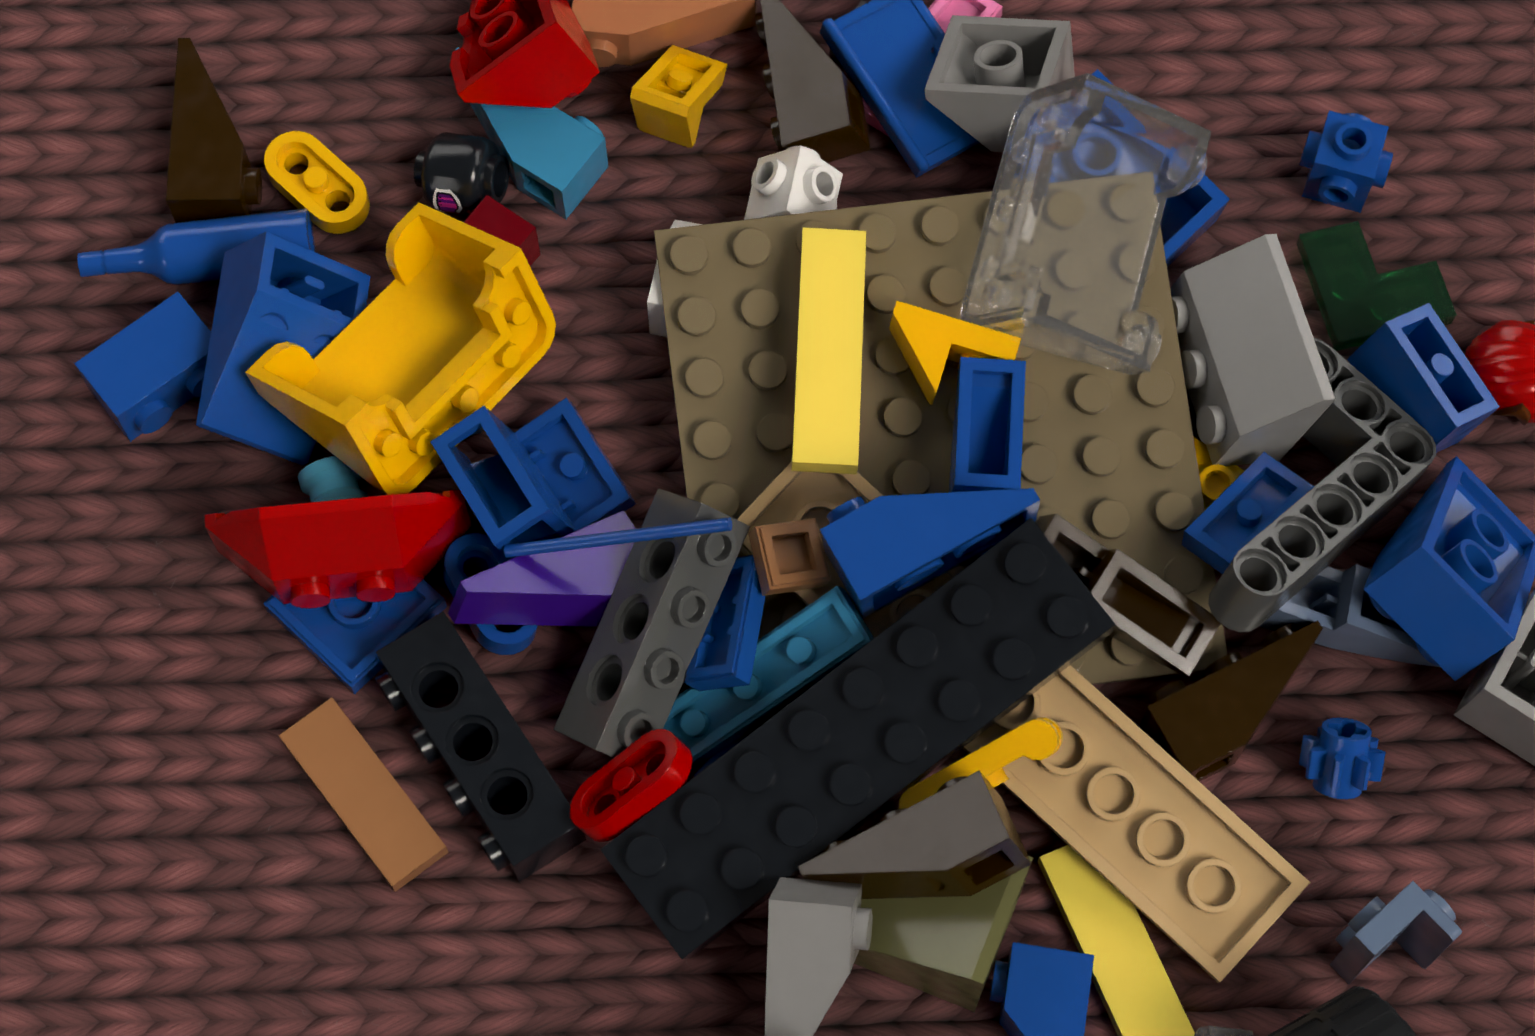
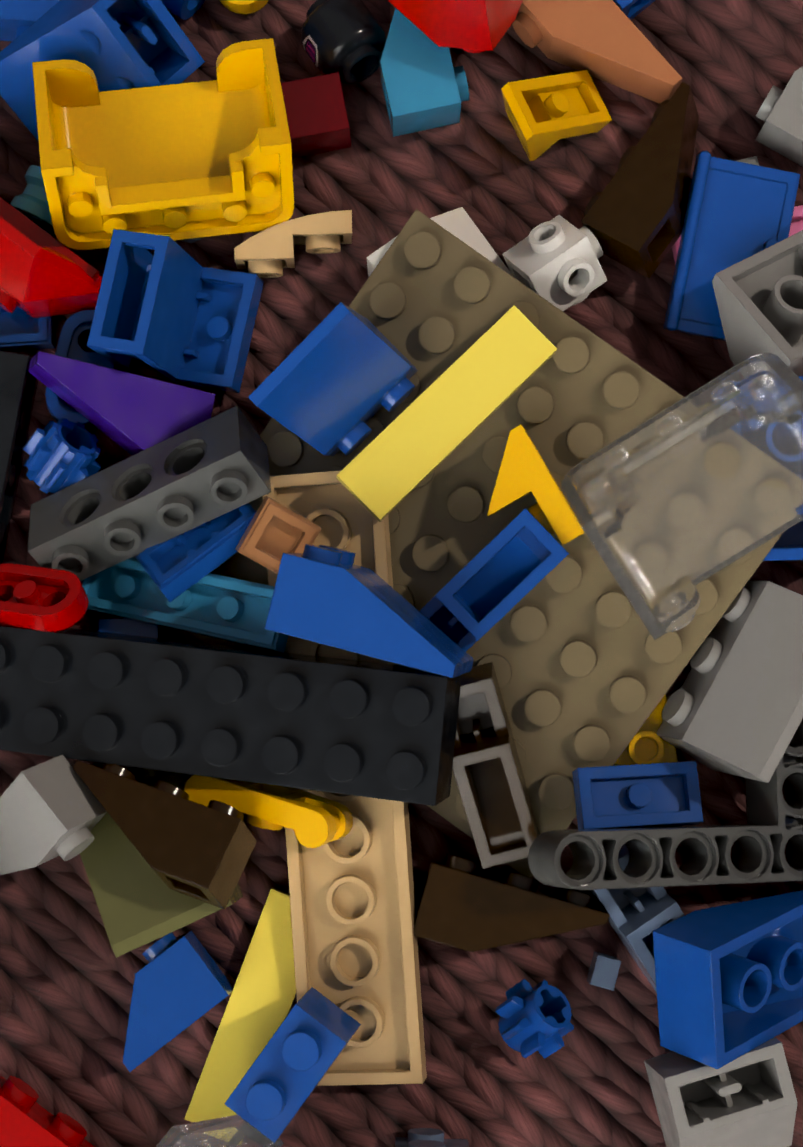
camera: 45 degrees right, 15 degrees up
(541, 670) = (61, 455): none -> blue gear
(563, 363) = (274, 247): none -> tan slope
(618, 537) = (168, 420): blue axle -> none
(731, 390) = (336, 383): none -> blue slope
(1199, 955) = (292, 1064): none -> blue brick
(1354, 679) = (603, 971): none -> sand blue piece

